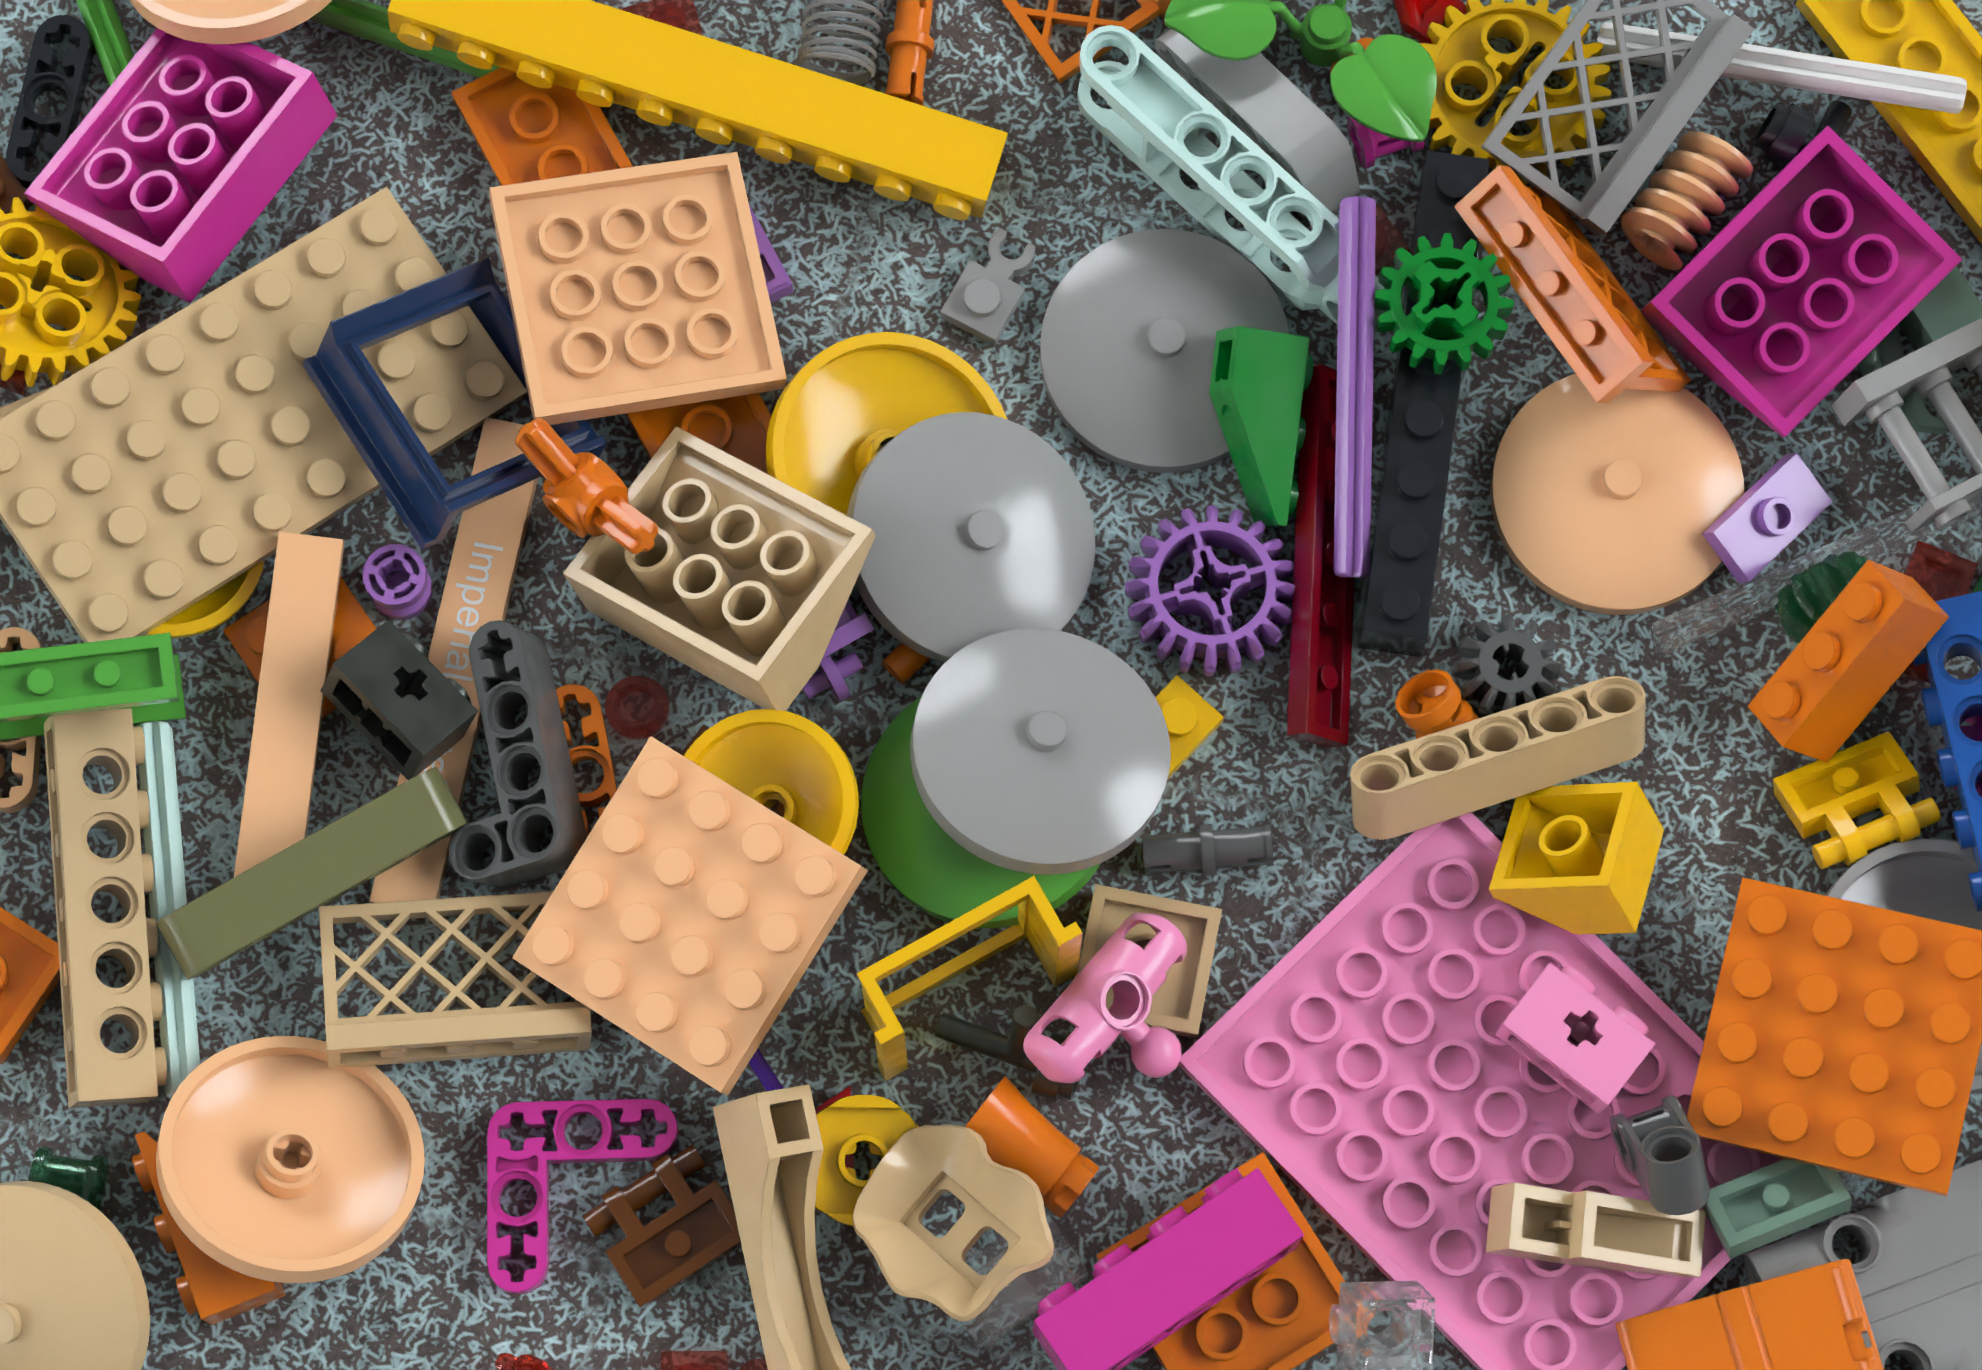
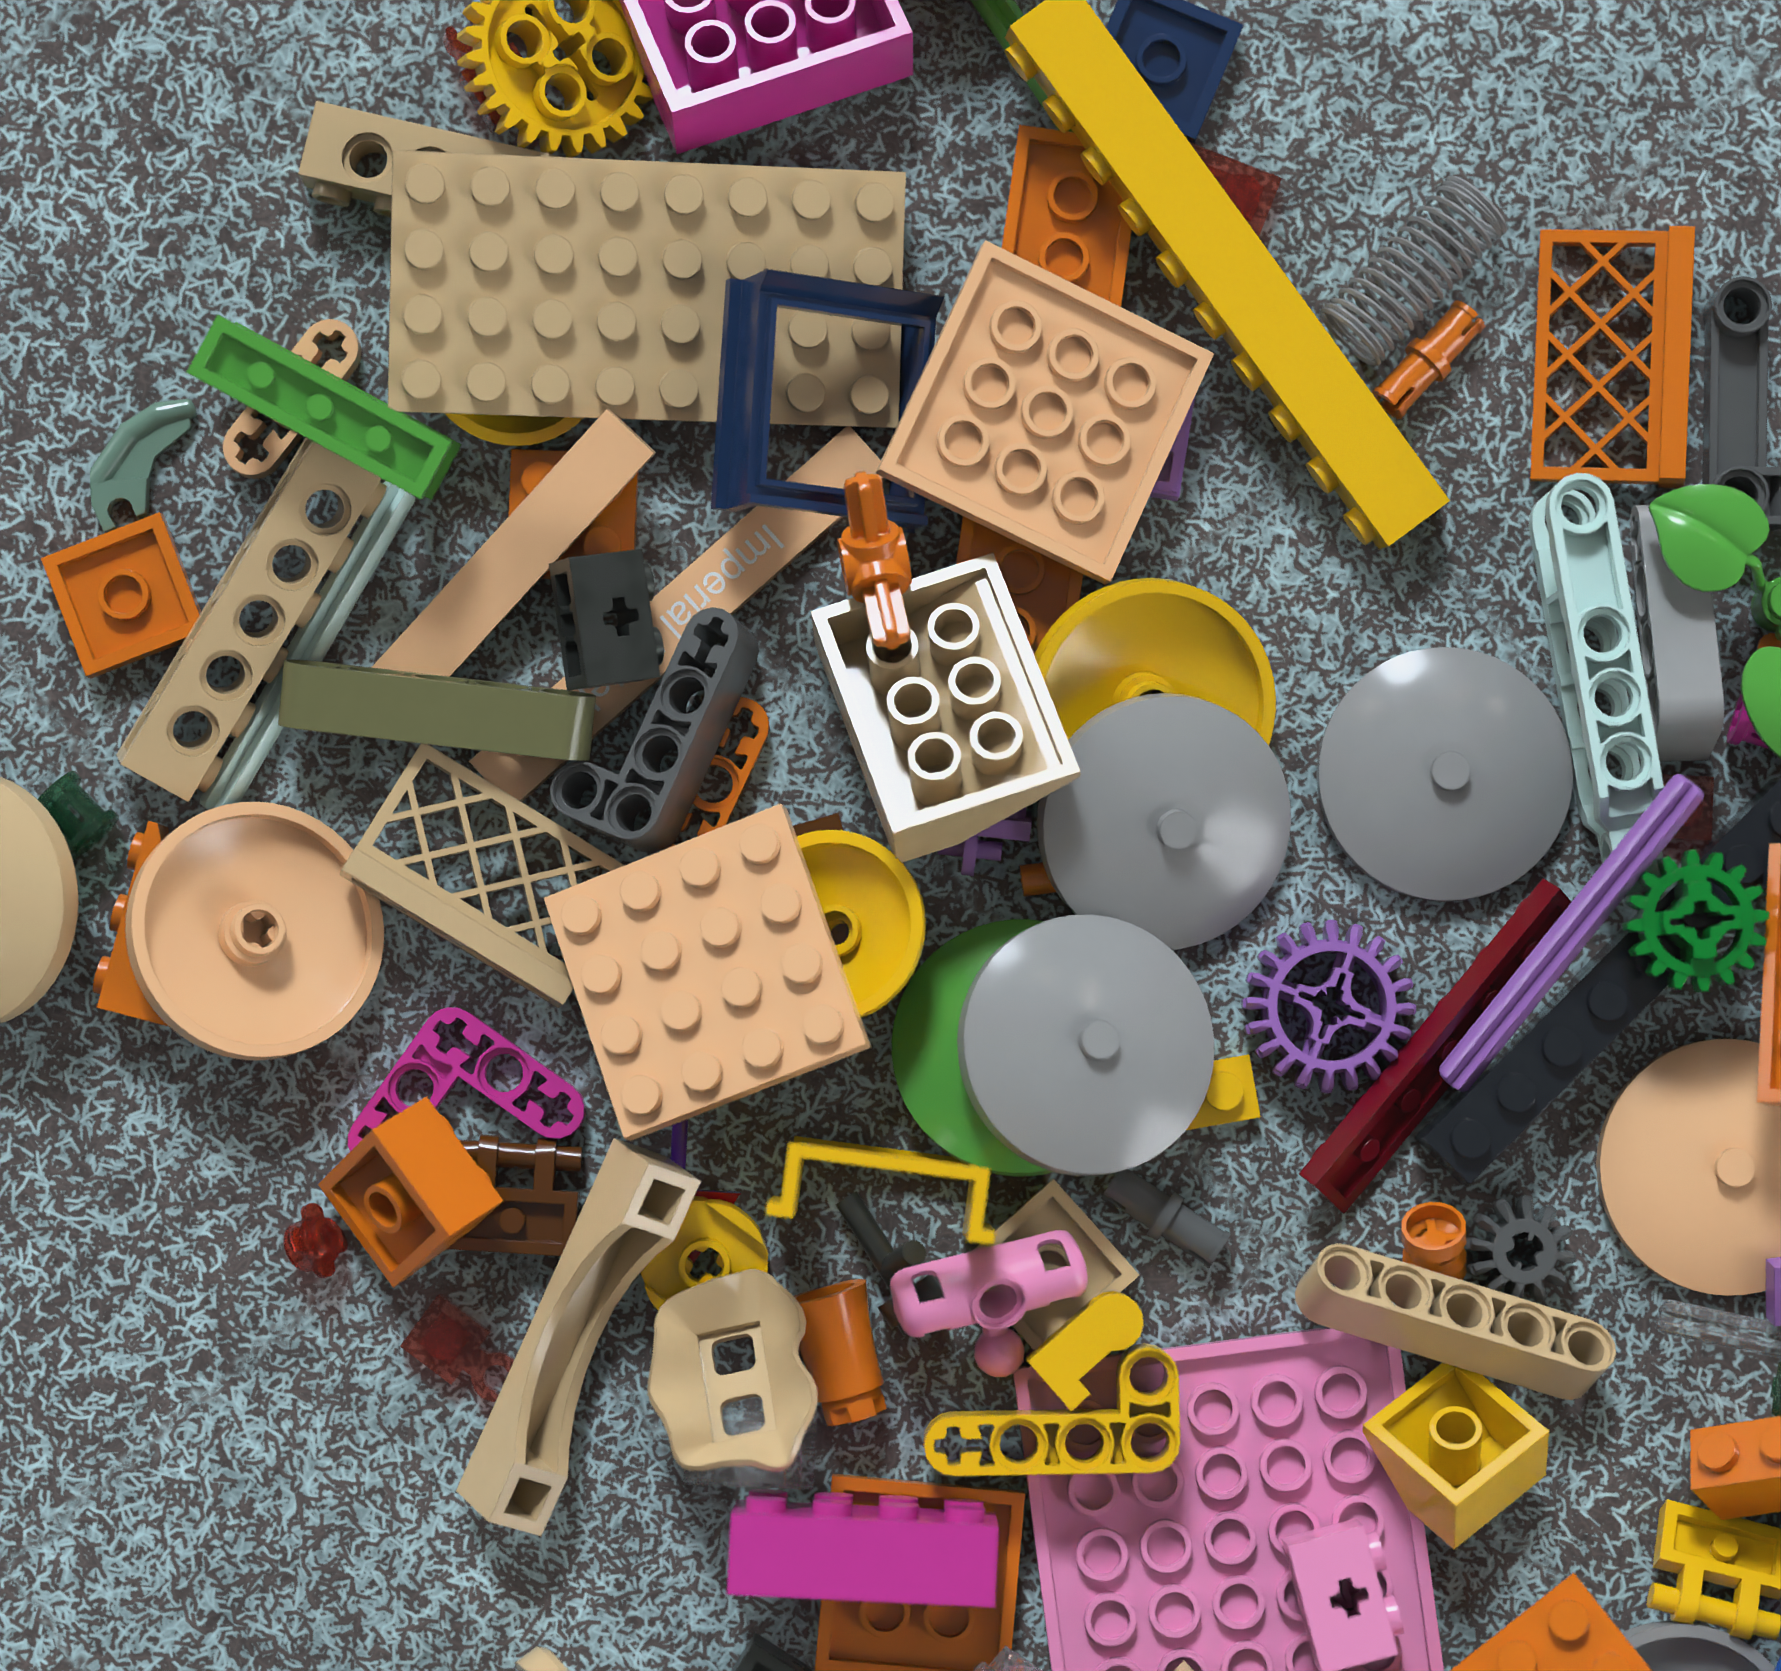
camera: 35 degrees right, 10 degrees up
(404, 592) = (682, 523): medium lavender wheel -> none
(574, 1276) = (409, 1191): none -> orange slope
(637, 707) = (796, 758): clear red plate -> none
(987, 295) = (1332, 619): light grey plate -> none
(1221, 968) = (1101, 1326): none -> yellow leg
(1243, 1075) = (1052, 1427): none -> yellow beam
(1258, 403) = (1483, 884): green slope -> none

